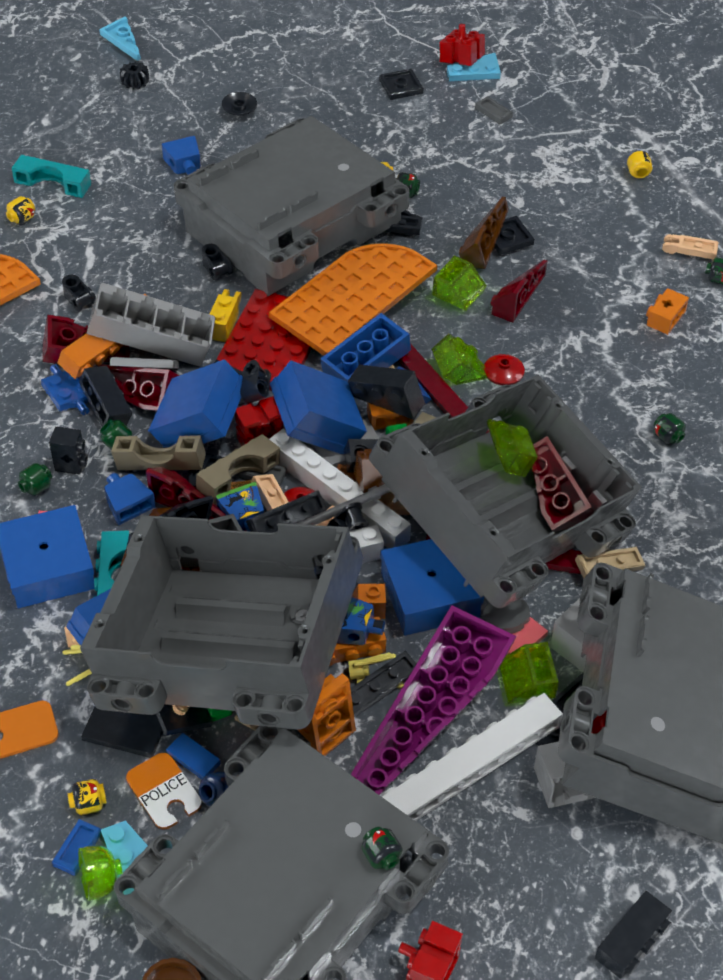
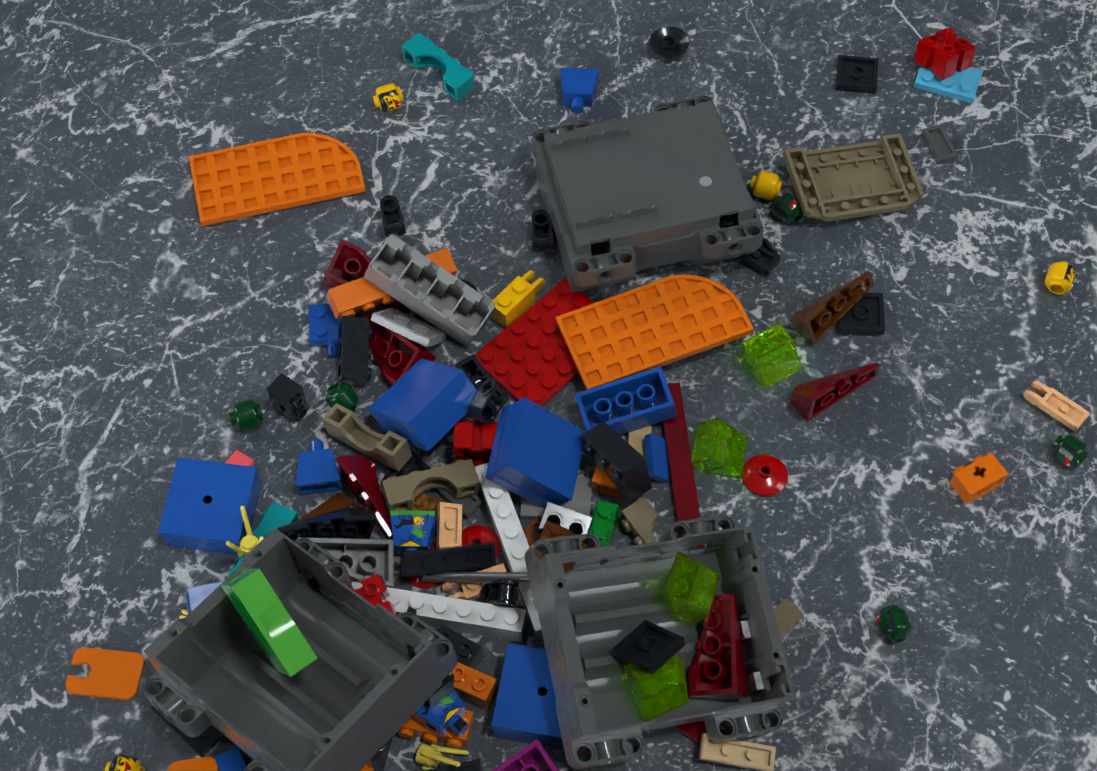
camera: 30 degrees right, 10 degrees up
(103, 567) = (249, 541): none -> light yellow plant
(187, 573) = (269, 621): none -> bright green tile
(446, 148) = (854, 179): none -> dark tan slope
(507, 494) = (649, 646): none -> black plate
(524, 520) = (659, 691): none -> clear neon green slope

